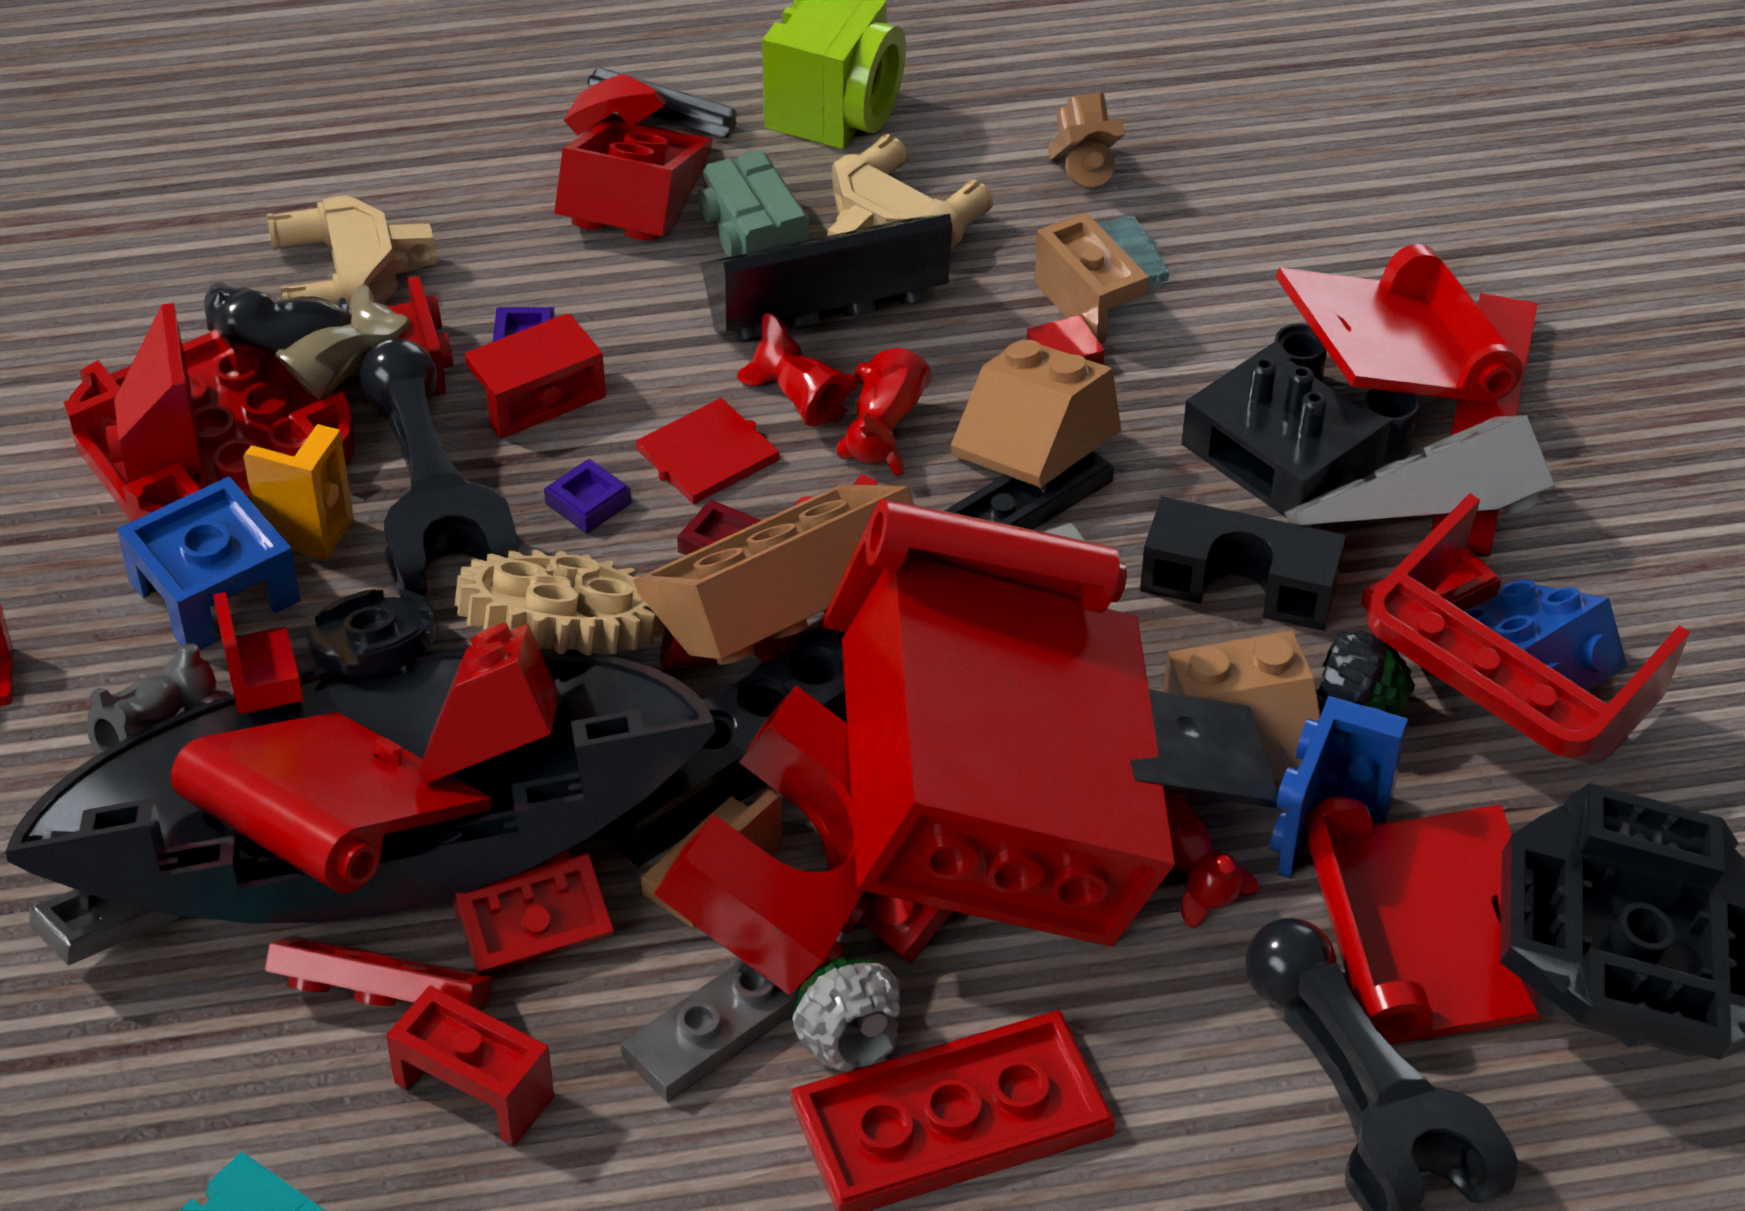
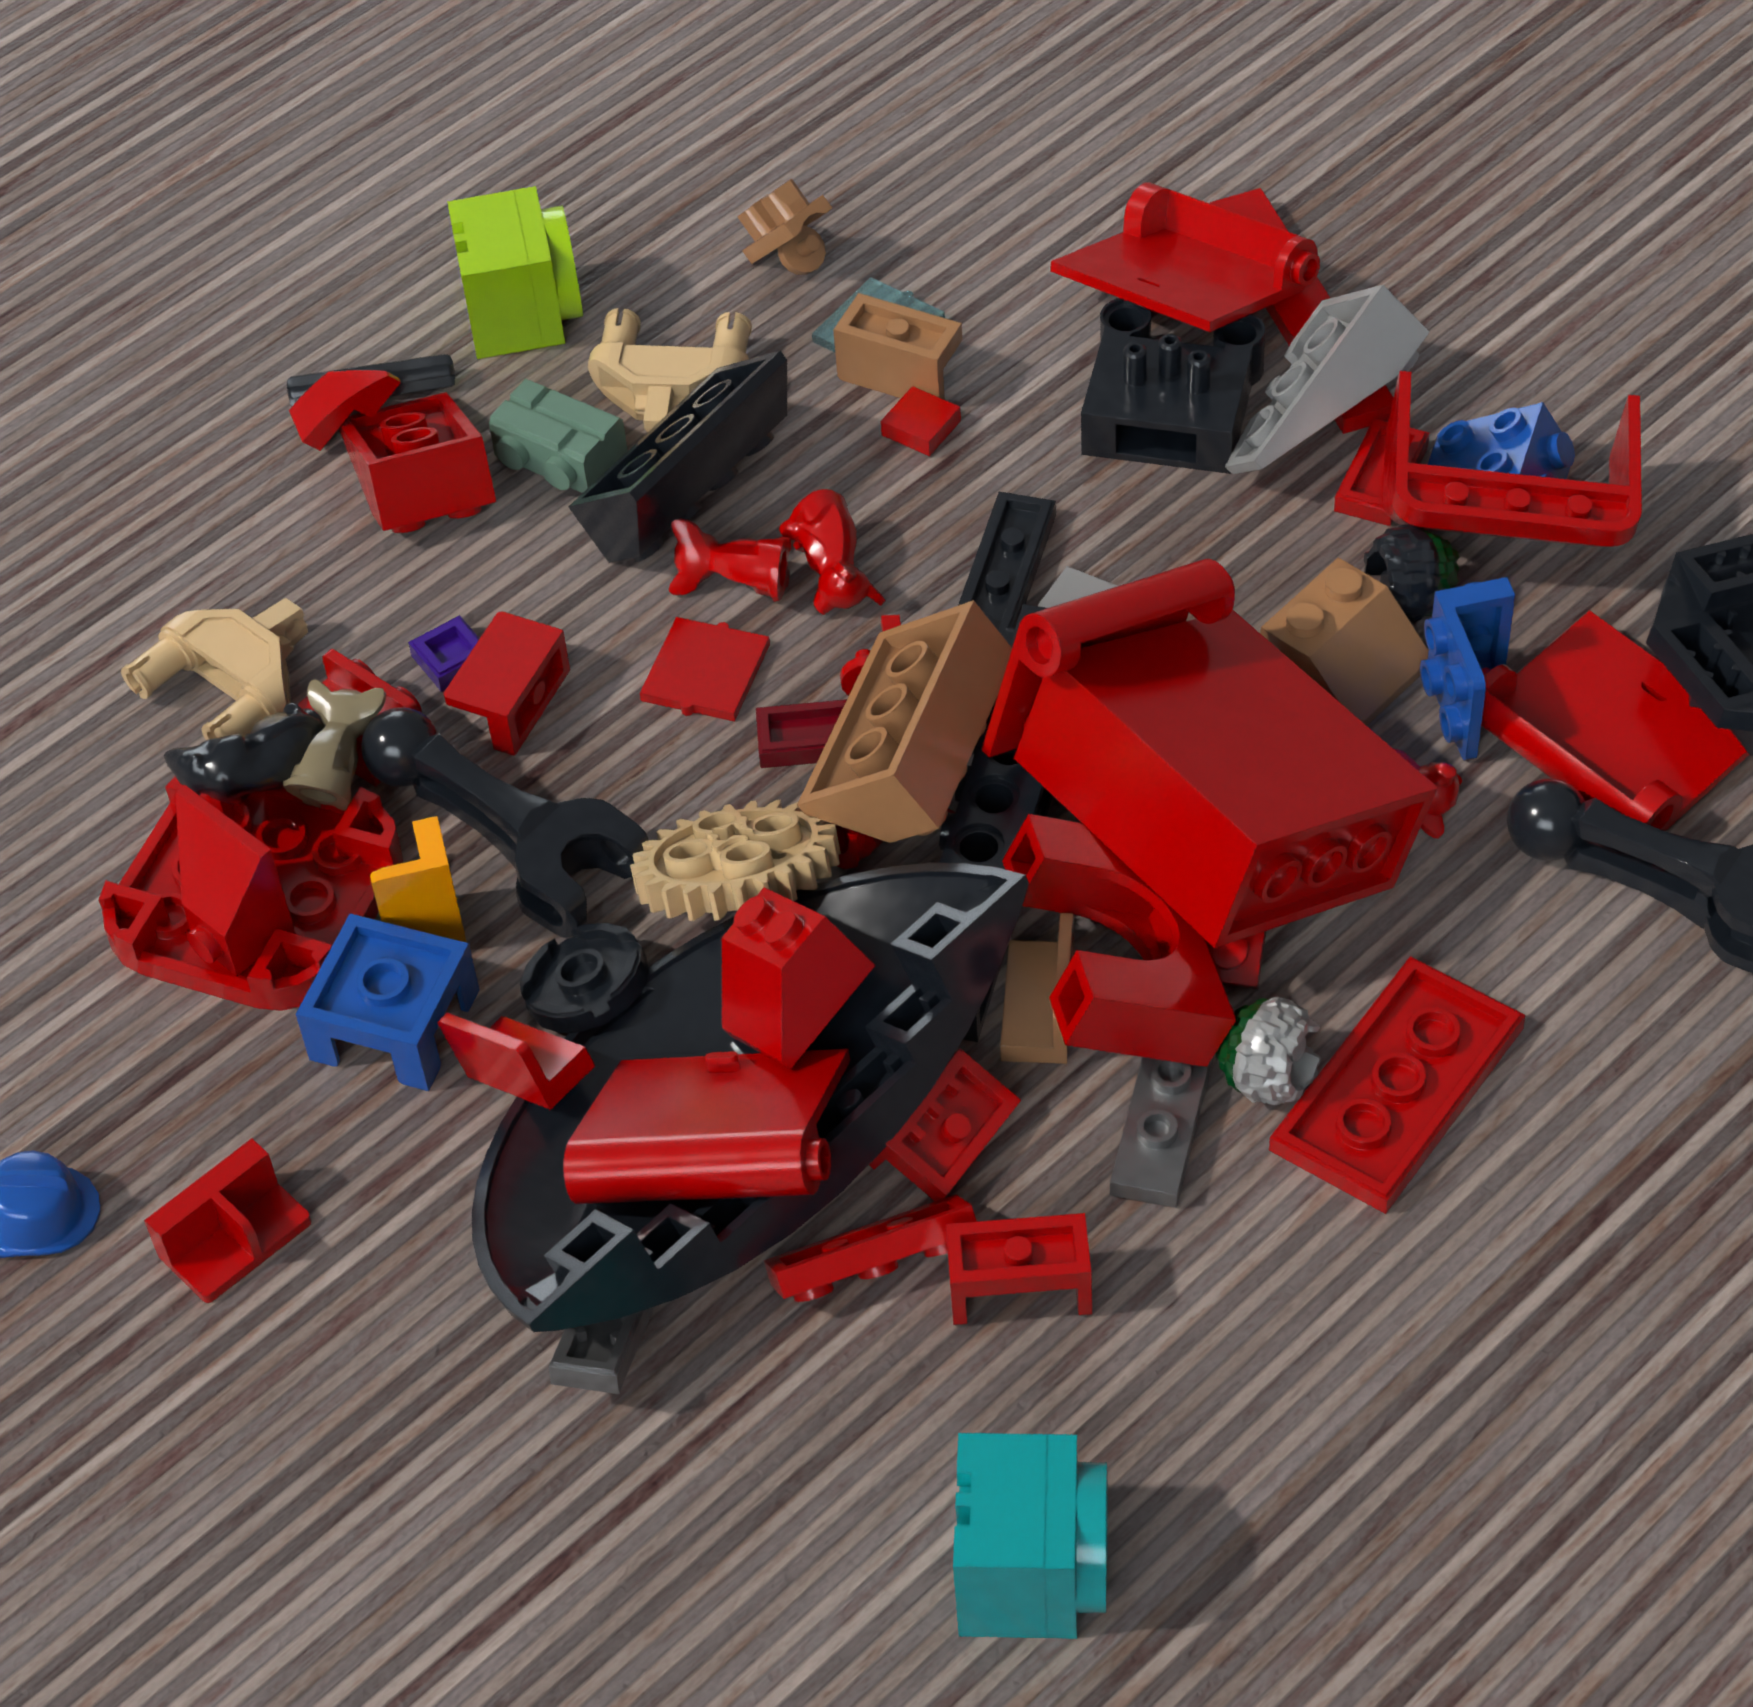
camera: 30 degrees left, 5 degrees up
(184, 684) = (452, 1161): dark grey animal -> none
(587, 495) = (644, 762): dark purple tile -> none
(1037, 412) = (967, 488): medium nougat slope -> none
(1201, 543) = (1271, 506): black arch -> none
(1207, 751) = (1370, 687): black piece -> none

